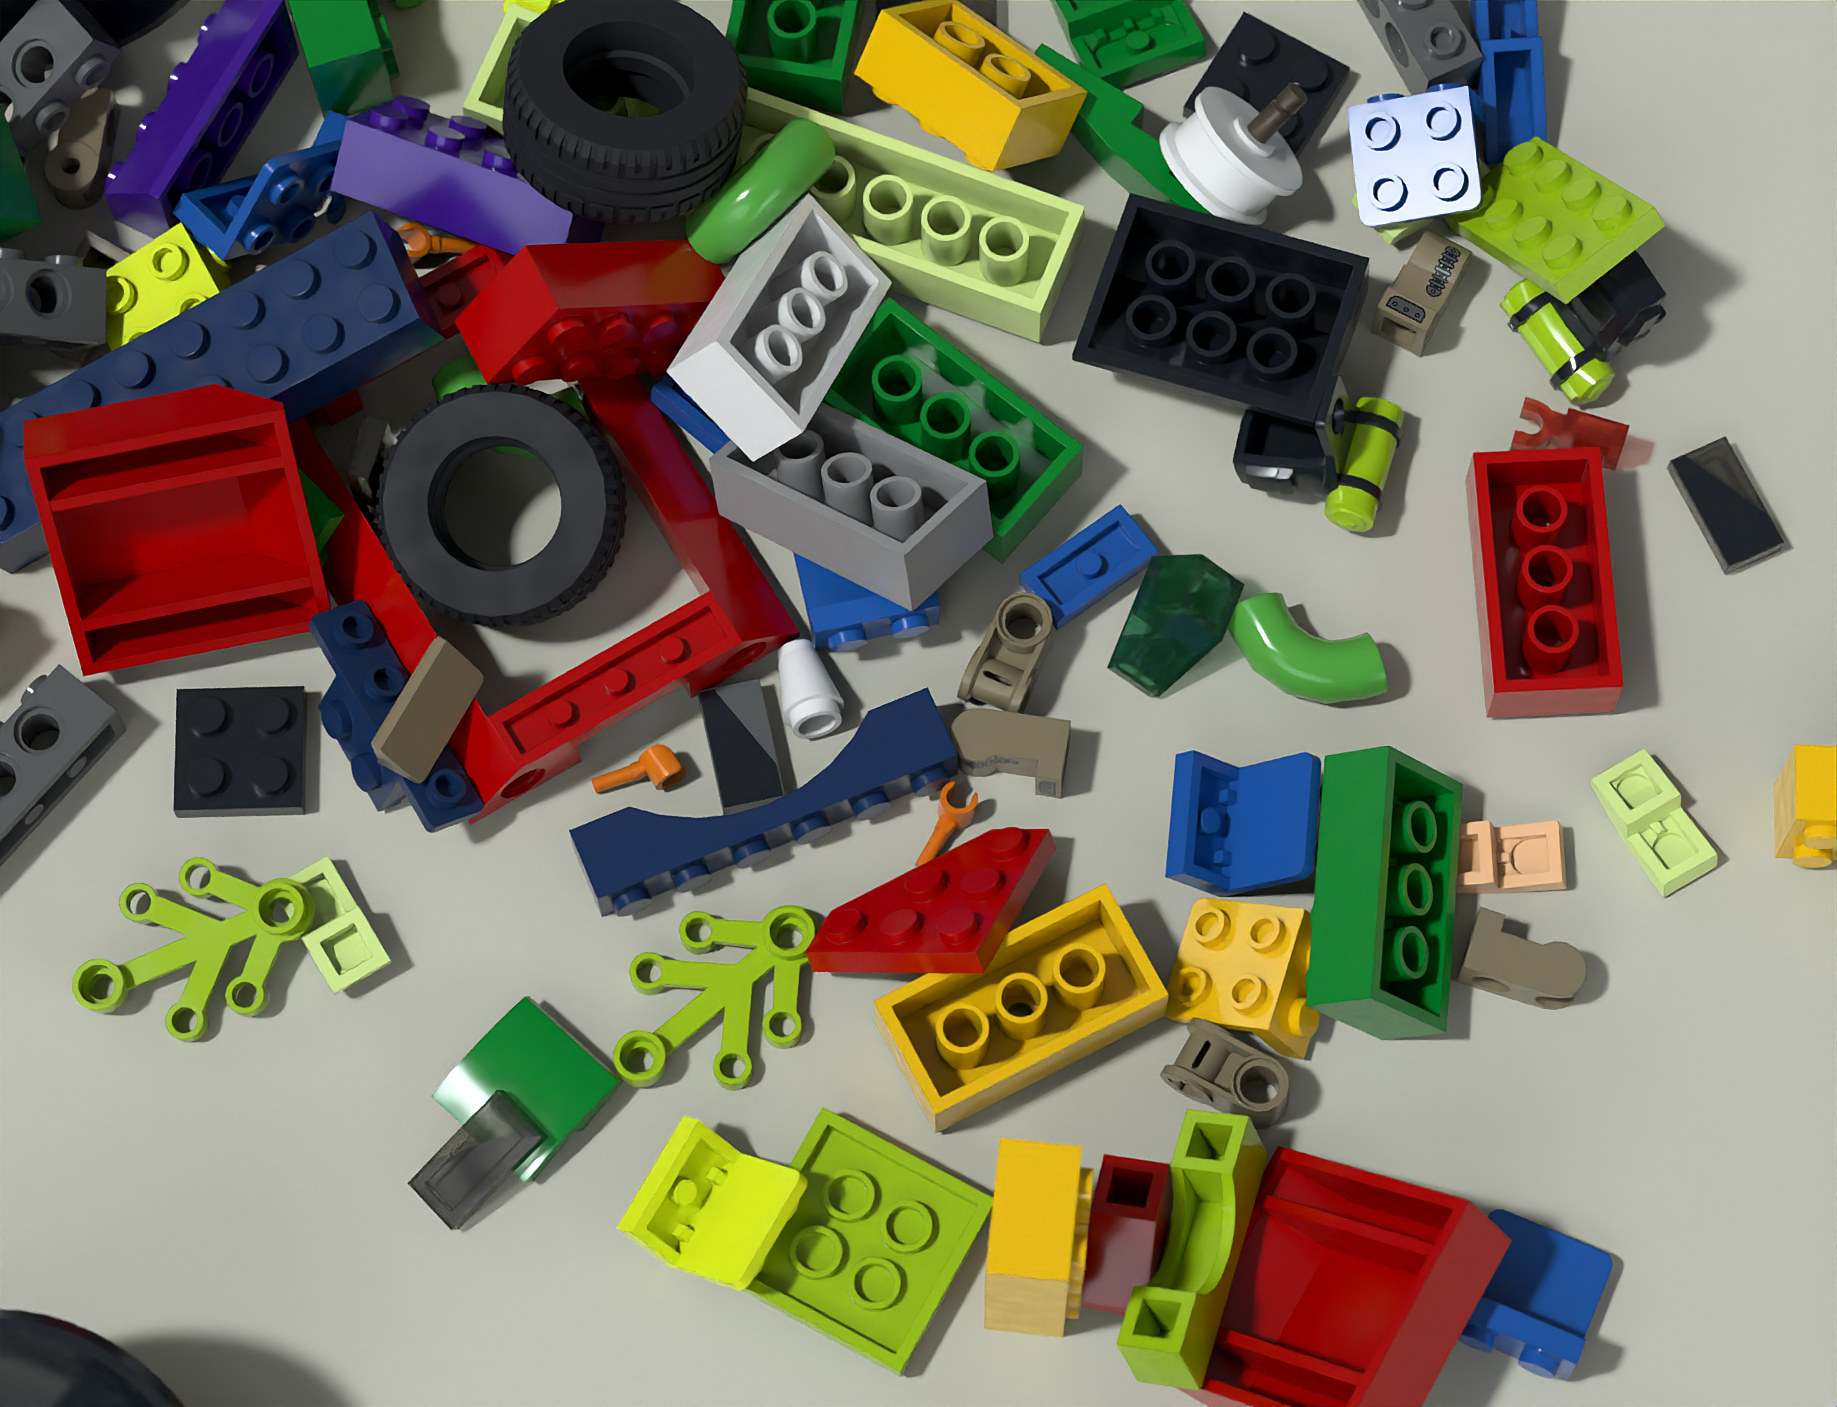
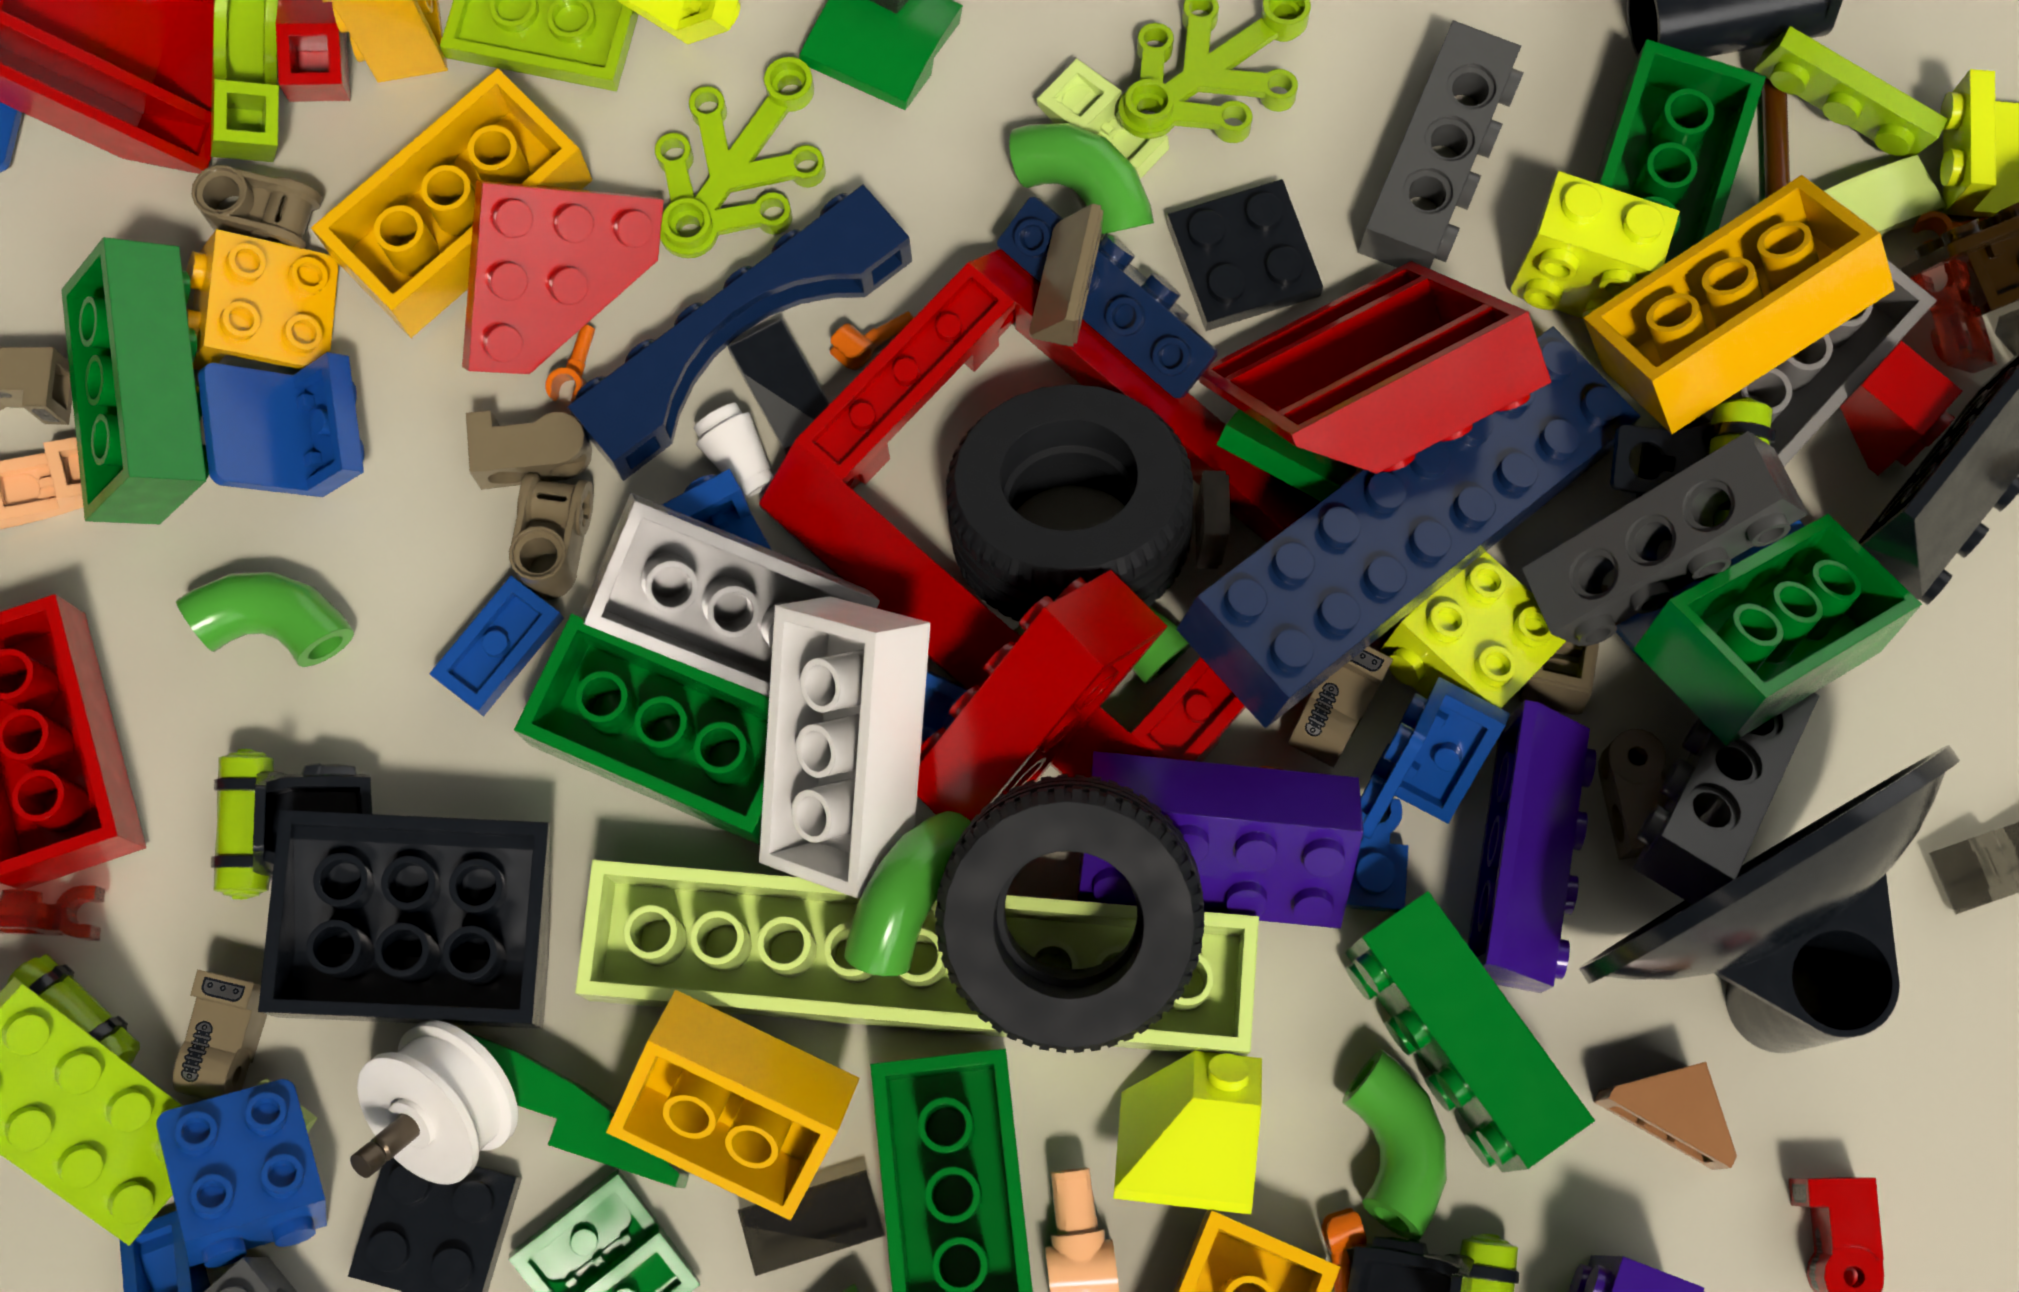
camera: 165 degrees right, 5 degrees up
(365, 864) = (1085, 164): none -> bright green cylinder
(1174, 621) = (395, 609): clear green slope -> none

